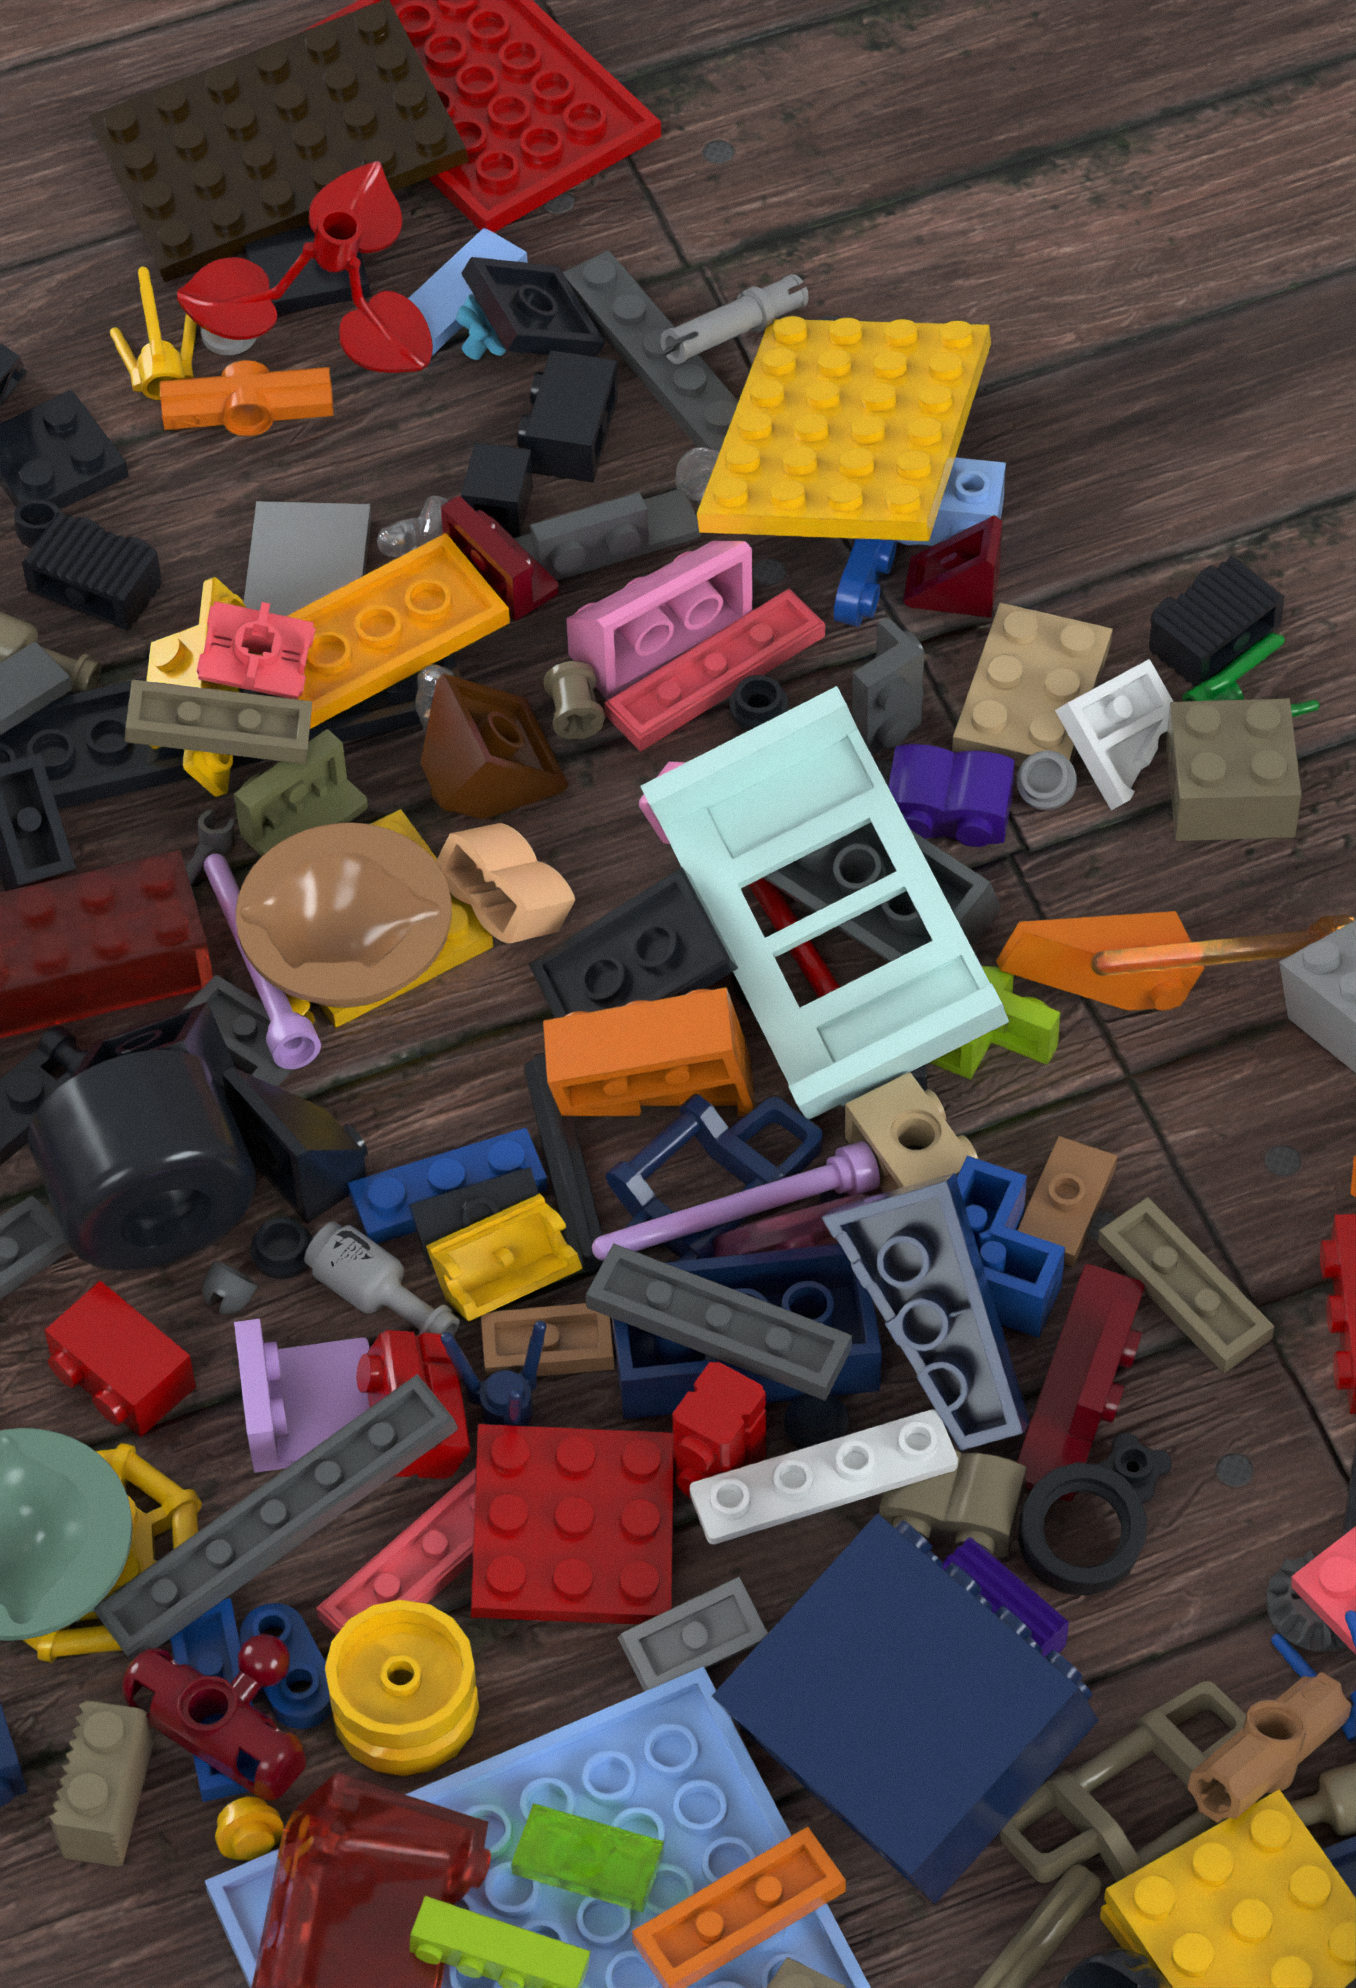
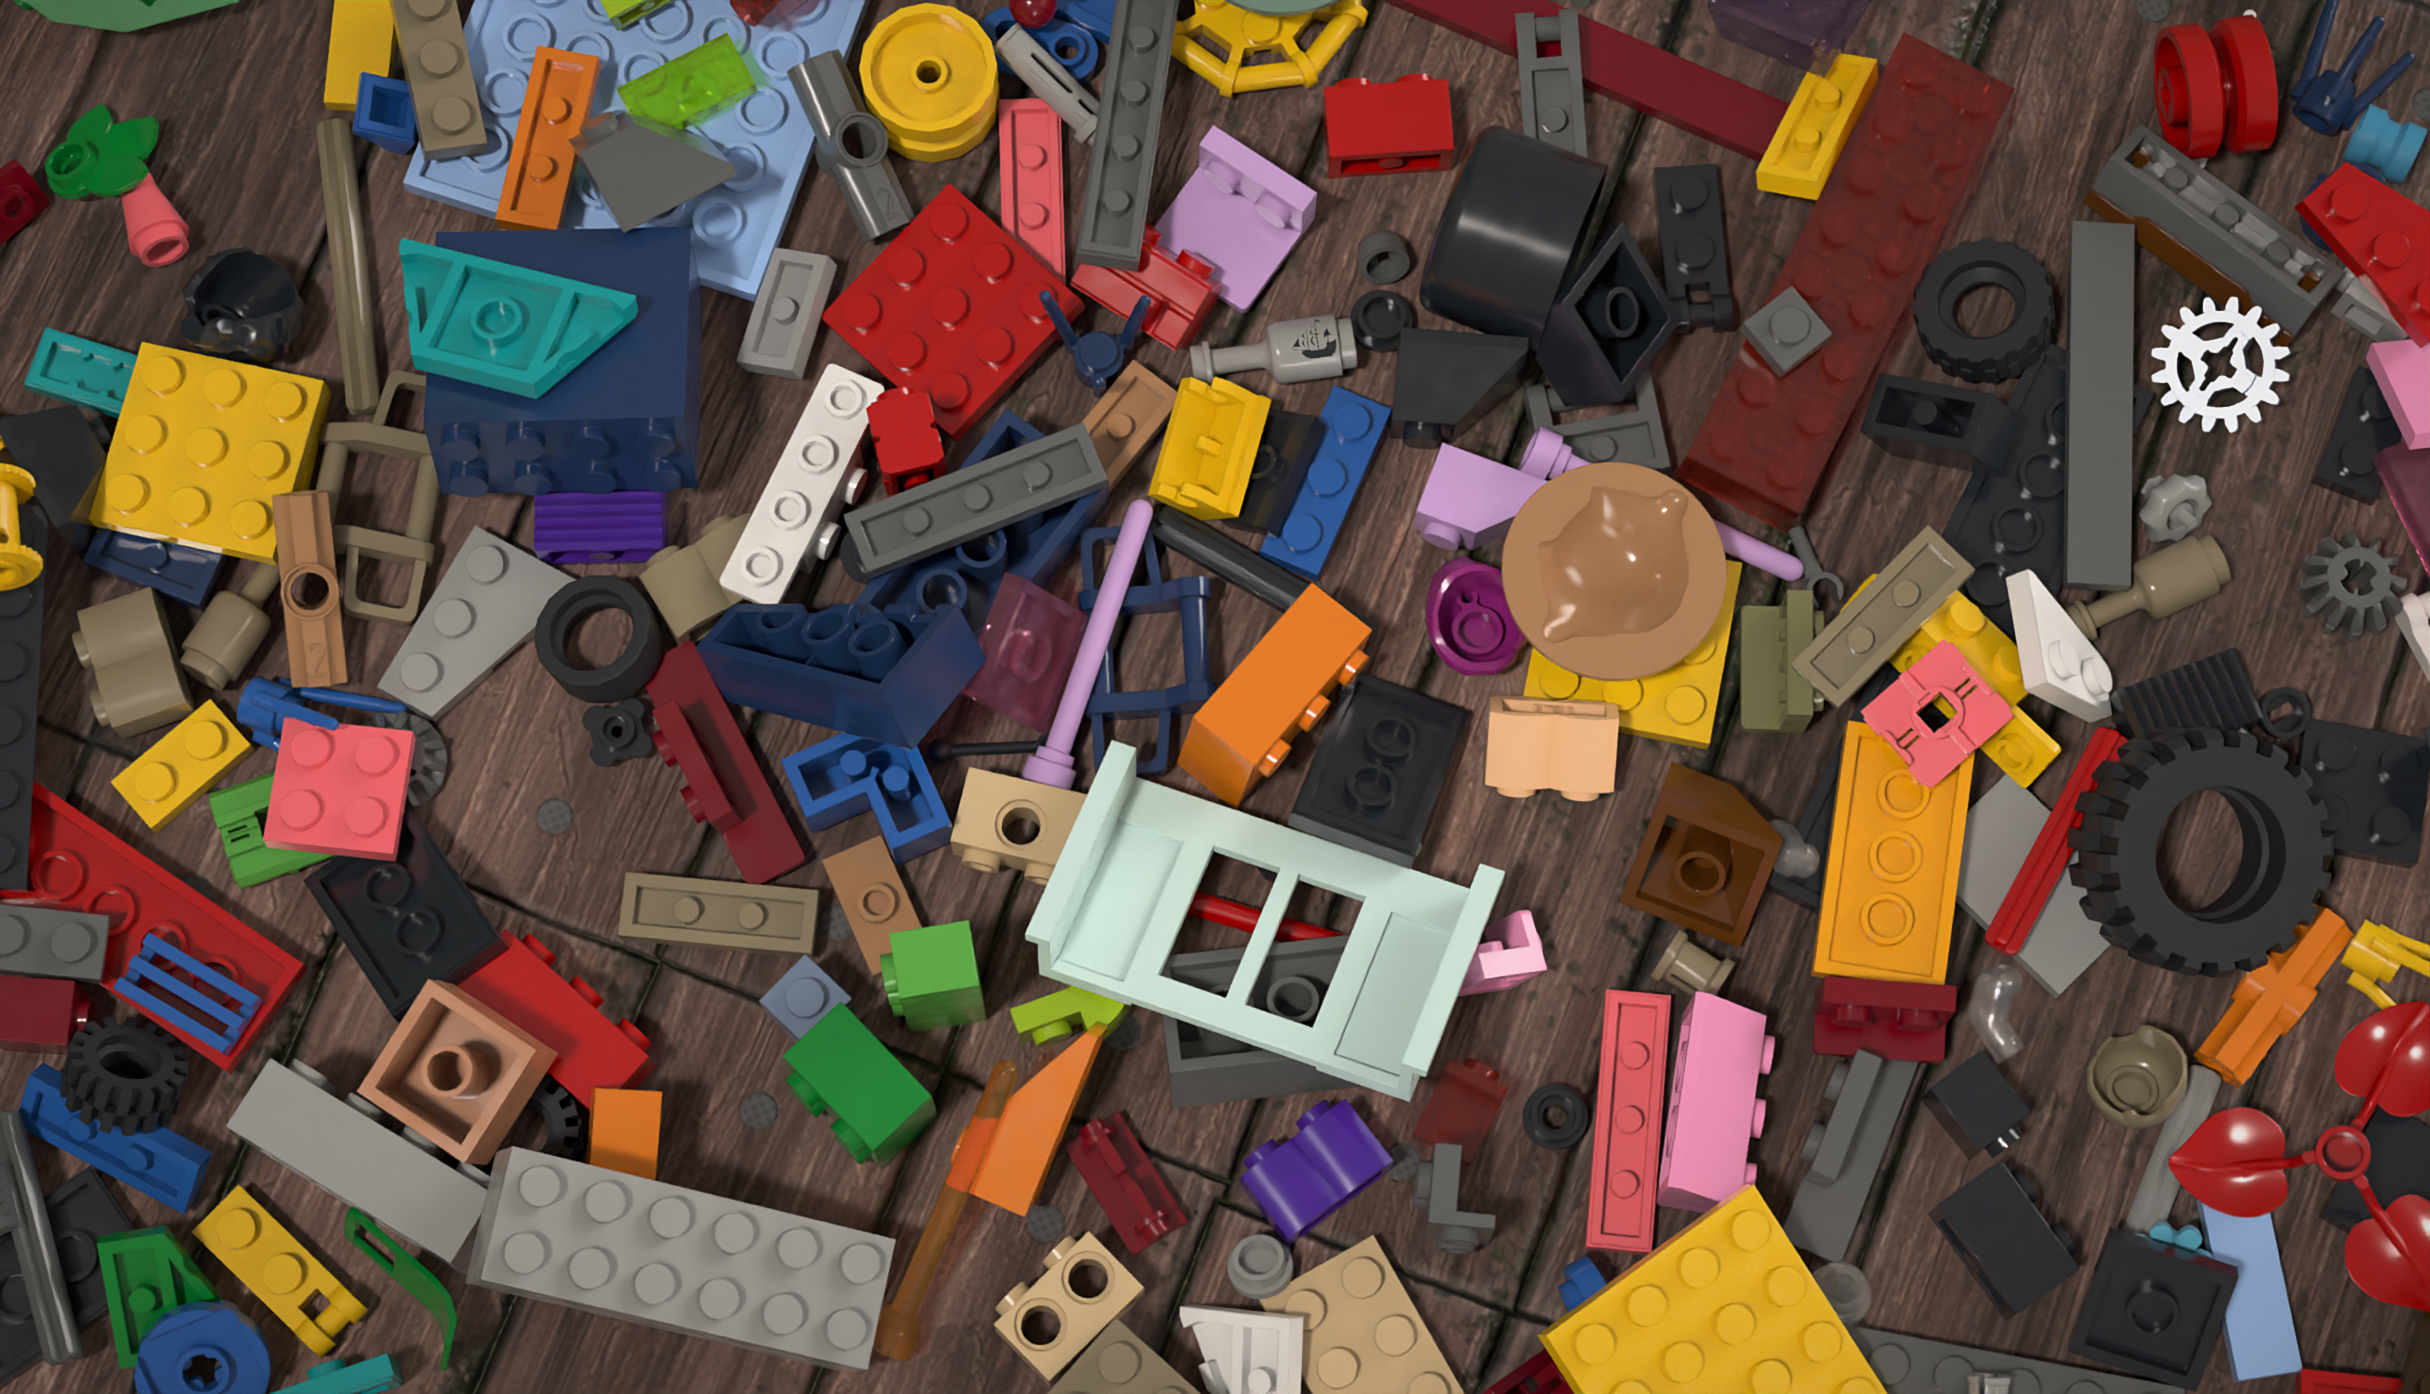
camera: 130 degrees right, 20 degrees up
(50, 938) = (1785, 331): none -> dark grey plate
(130, 641) = (2055, 654): none -> white wing
(197, 466) = (2277, 864): none -> black tyre
(267, 565) = (2050, 851): none -> red axle
(316, 1567) = (1049, 82): none -> light grey pin
(368, 1071) = (1470, 499): none -> lavender slope
(385, 417) = (2138, 1078): none -> dark tan hair
(401, 387) = (2159, 1184): none -> light grey axle
(459, 1002) = (1475, 635): none -> magenta hair
(513, 1696) = (835, 110): none -> dark grey piece
(690, 1781) = (645, 166): none -> dark grey slope
(942, 1715) = (503, 320): none -> teal wing
(1083, 1065) = (934, 977): none -> bright green brick
(1084, 879) = (1124, 1183): none -> dark red hinge
(1162, 1645) = (470, 624): none -> light grey wing
(1185, 1166) = (803, 998): none -> sand blue brick
(1201, 846) = (1079, 1317): none -> tan brick
(1208, 1072) = (860, 1086): none -> green brick

